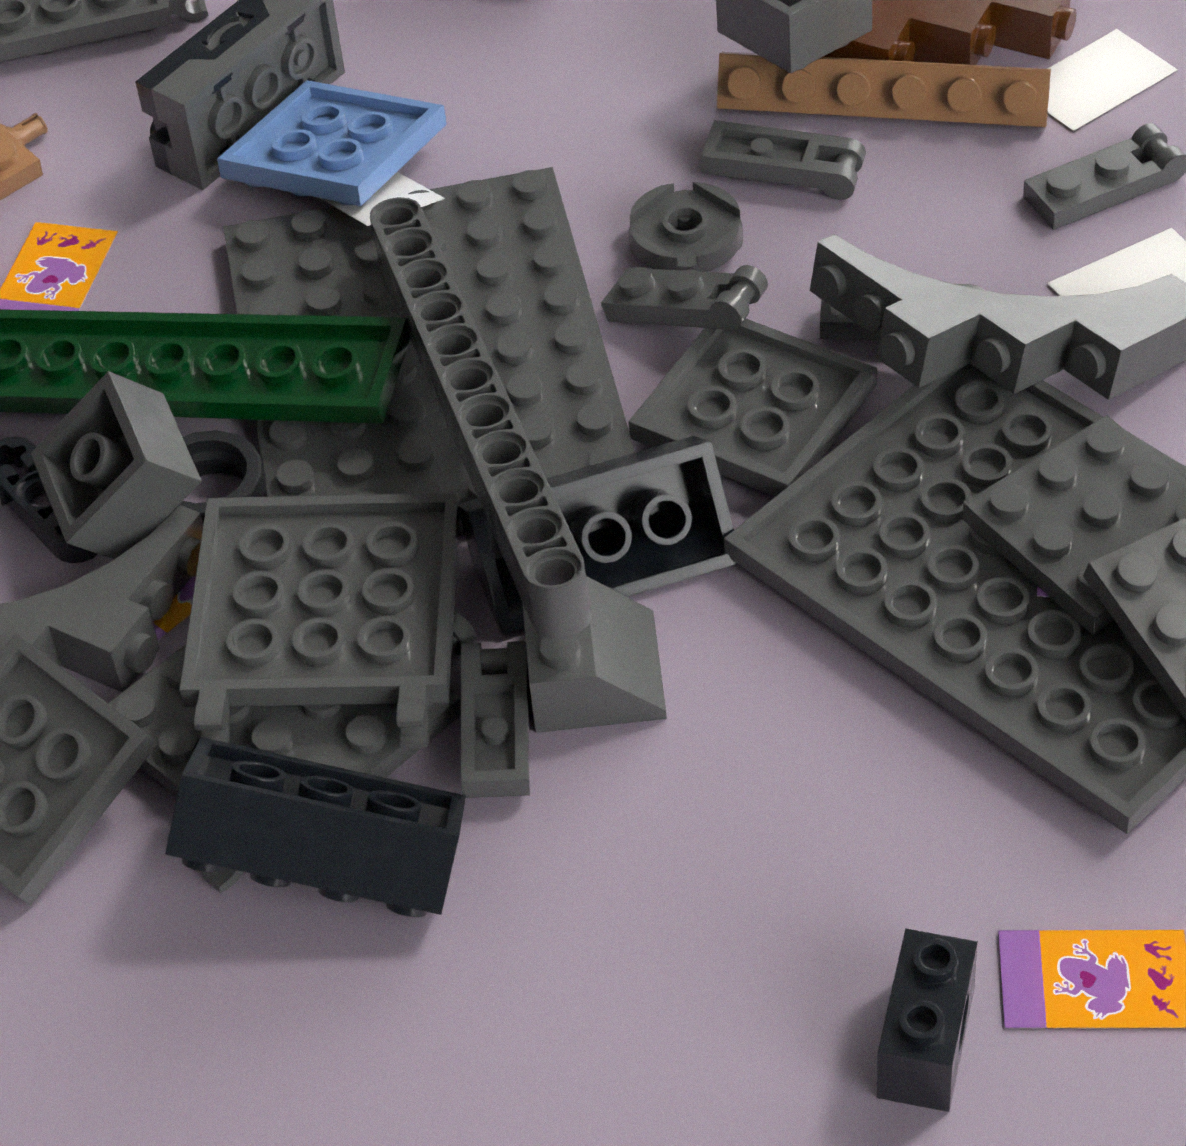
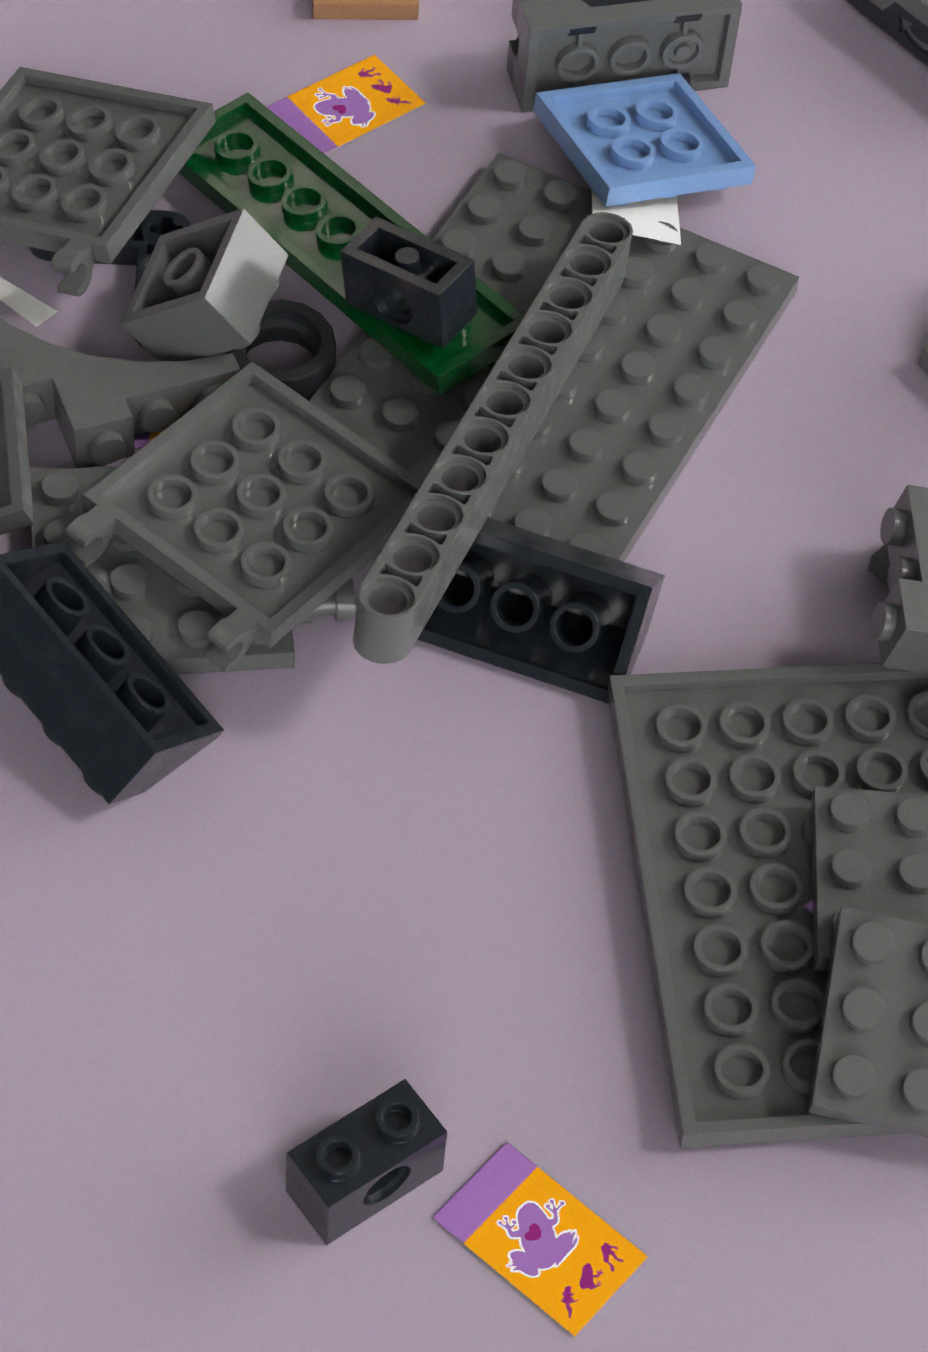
camera: 30 degrees right, 5 degrees up
(291, 345) = (409, 282): none -> black brick
(494, 721) = (297, 690): dark grey plate -> none
(600, 674) = (423, 705): dark grey slope -> none
(684, 297) = (784, 457): dark grey plate -> none
(705, 248) = (847, 428): dark grey plate -> none
(759, 399) = (754, 584): dark grey plate -> none

